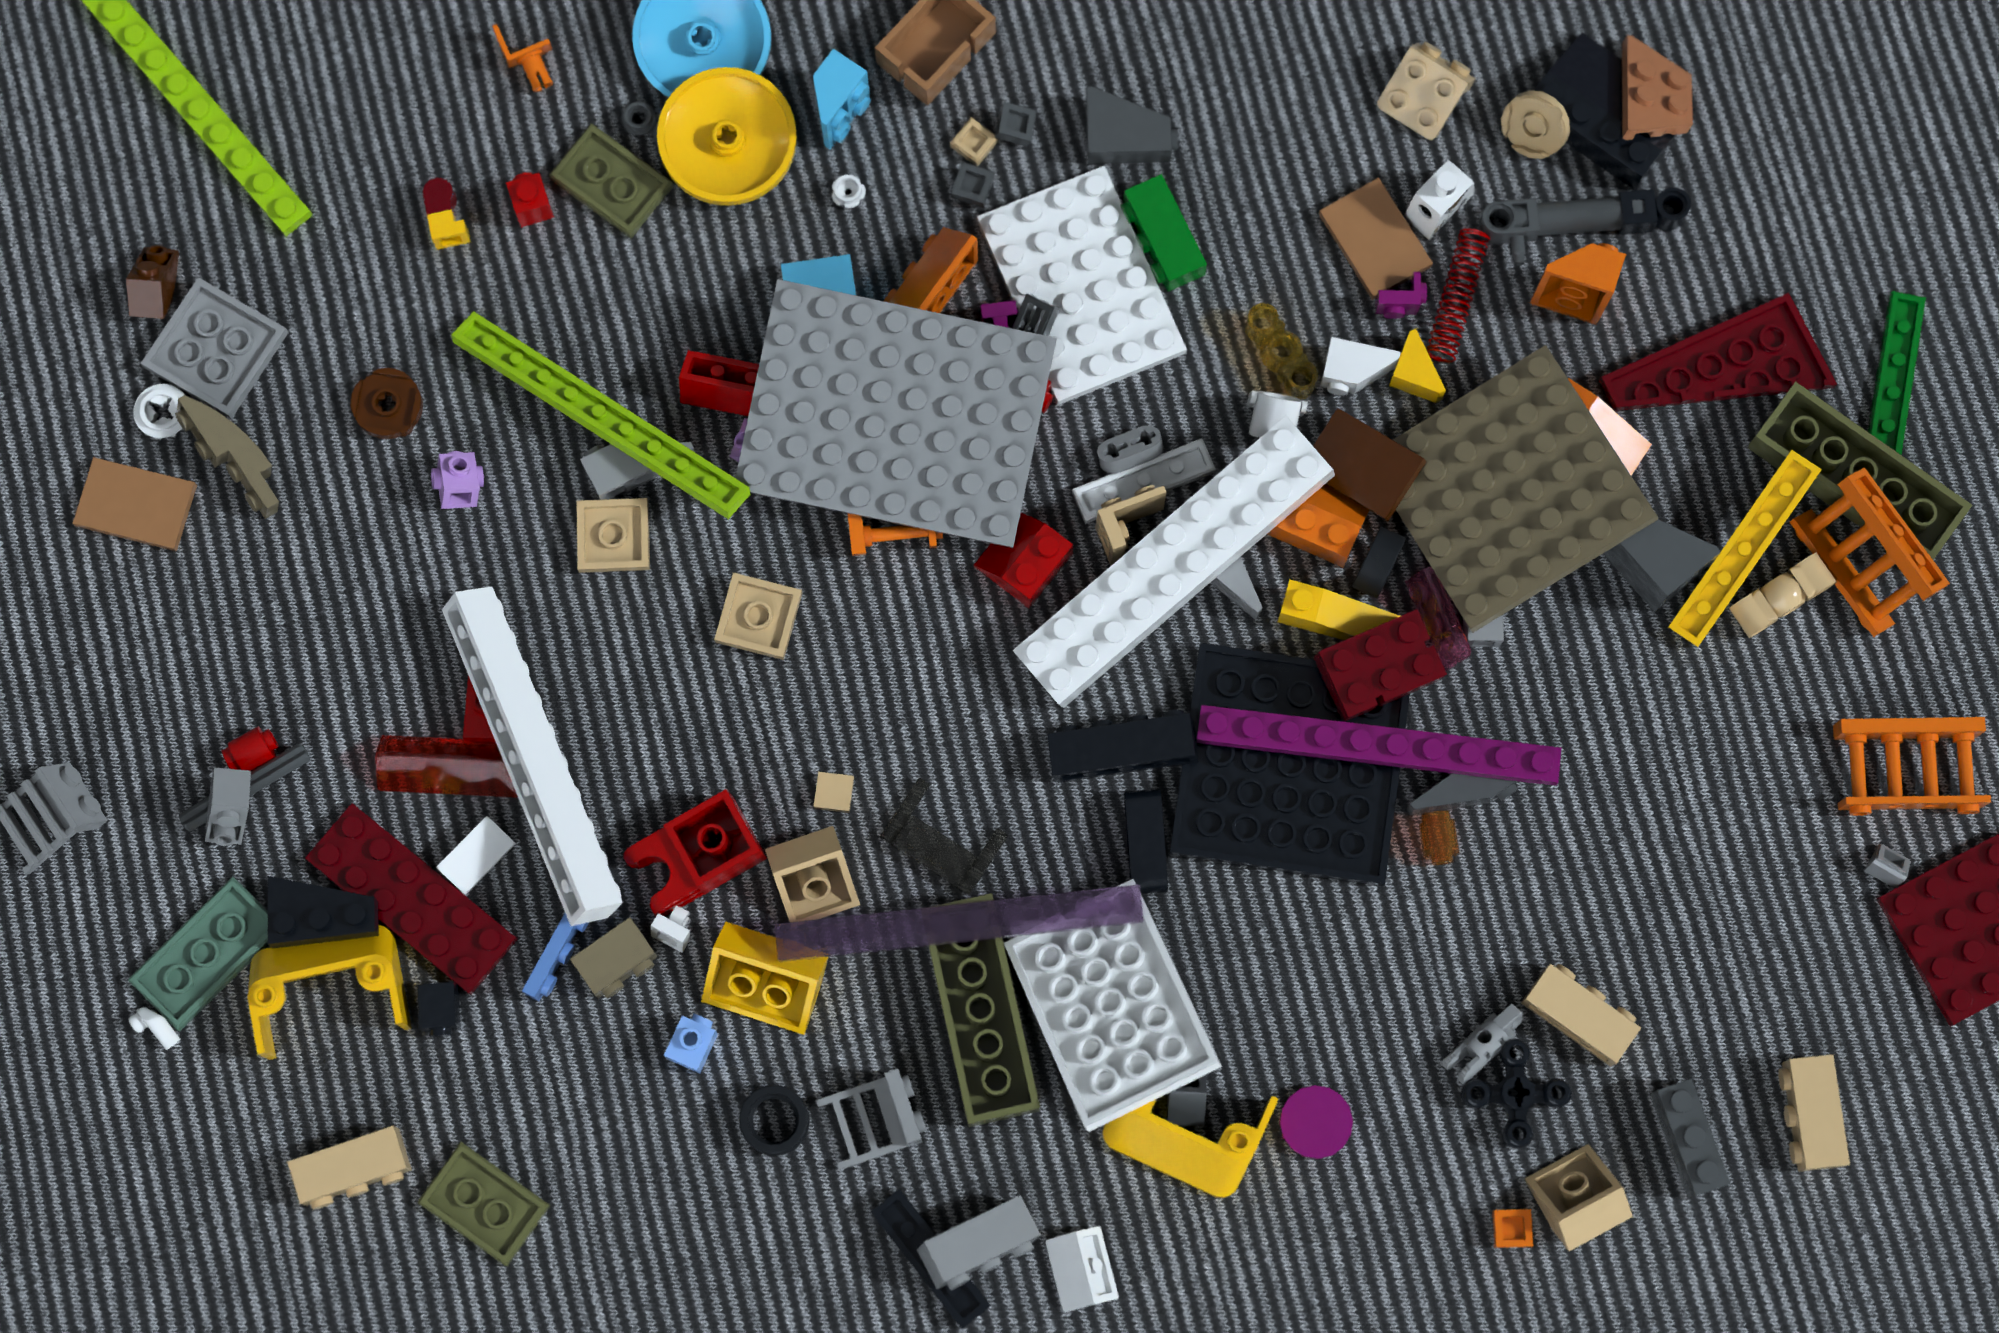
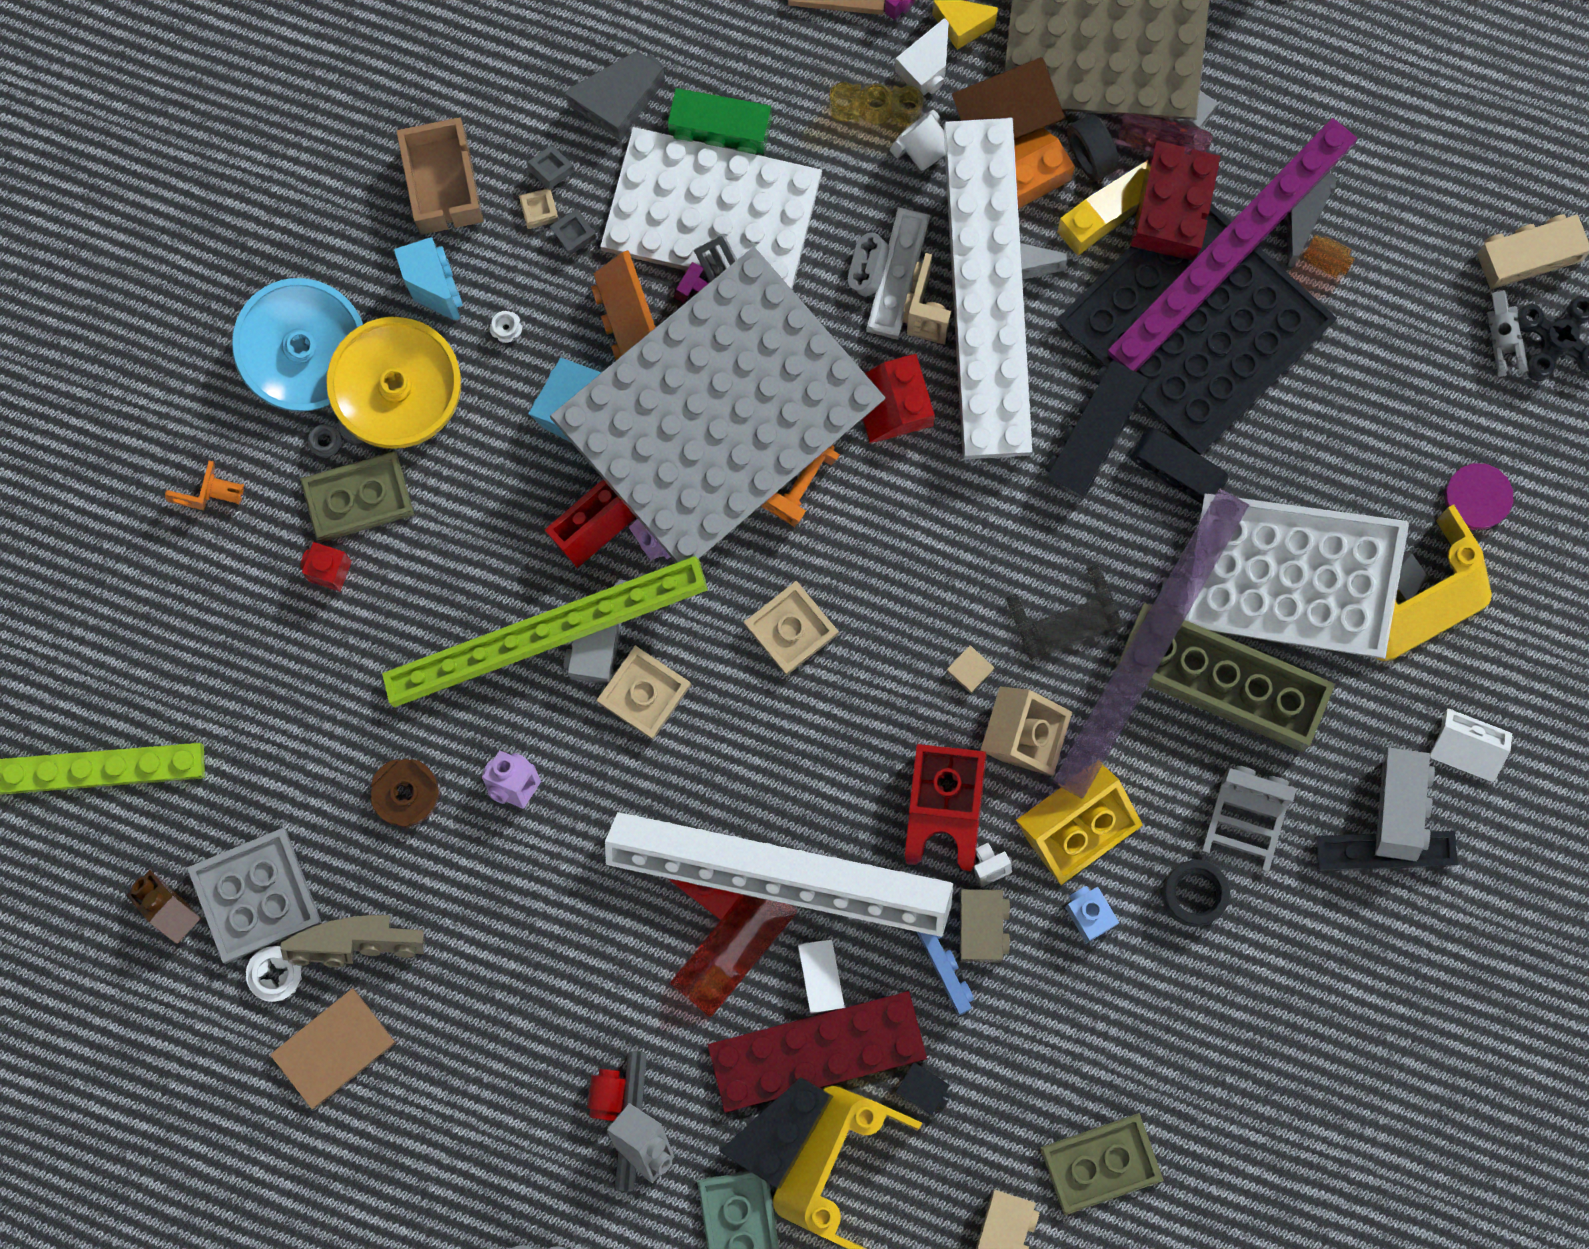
camera: 50 degrees left, 0 degrees up
(440, 206) = (285, 644): leg -> none

